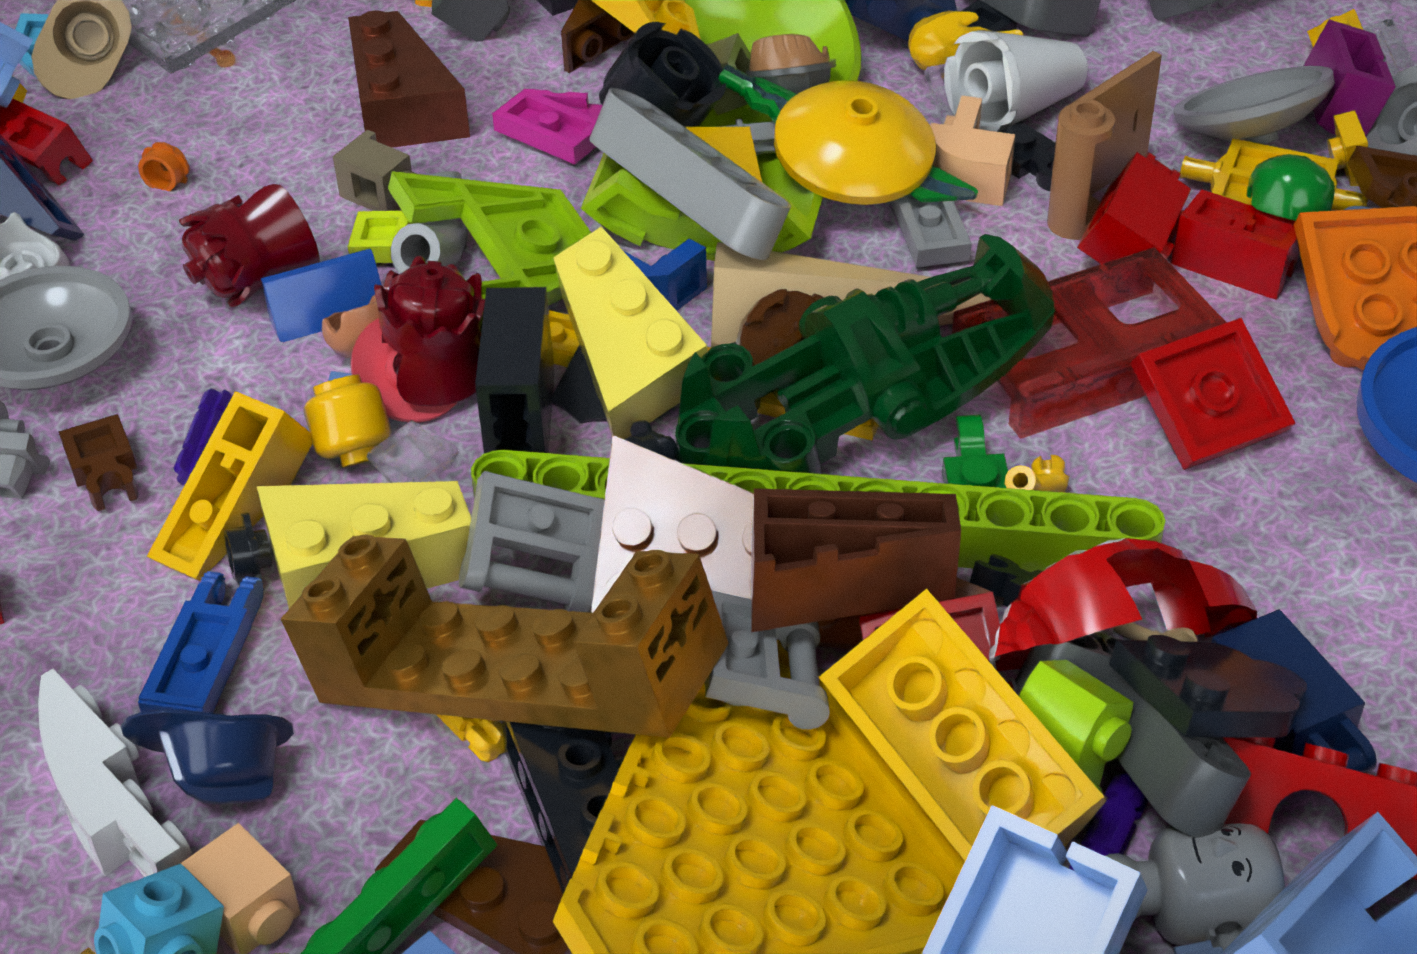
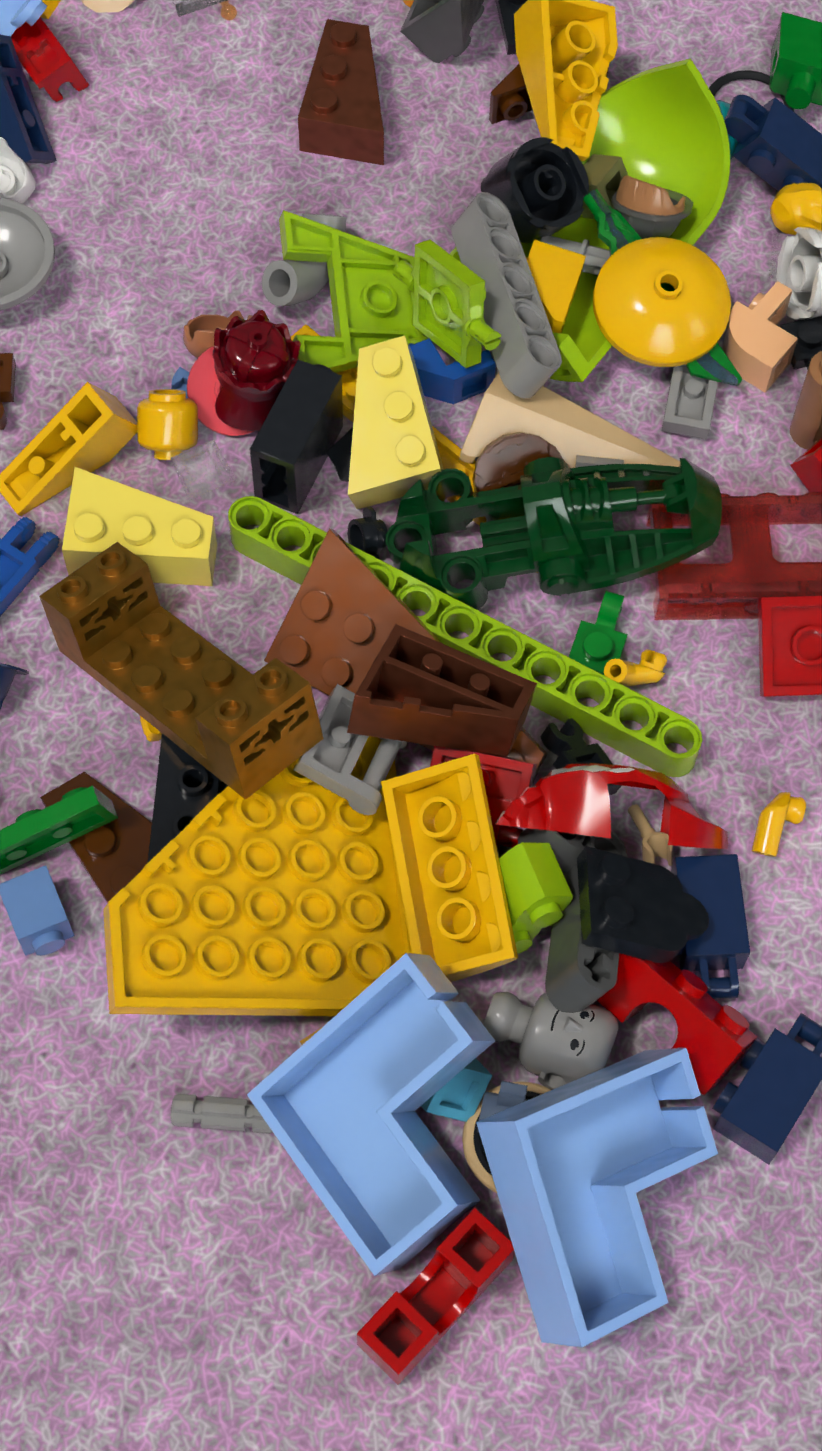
camera: 20 degrees right, 20 degrees up
(163, 166) = (136, 116): orange plate -> none
(203, 424) = (86, 370): dark purple axle -> none
(241, 243) = (156, 234): dark red hat -> none
(247, 550) = (54, 509): black plate -> none
(308, 294) = (197, 292): blue slope -> none
(365, 172) = (287, 184): dark tan brick -> none
(376, 232) = (260, 248): neon yellow plate -> none
(535, 522) = (253, 573): light grey plate -> none
(550, 122) = (446, 176): dark pink wing -> none
(631, 193) = (448, 303): none -> lime plate
(1114, 821) = (522, 972): dark purple axle -> none
(1286, 577) = (772, 820): none -> yellow arm

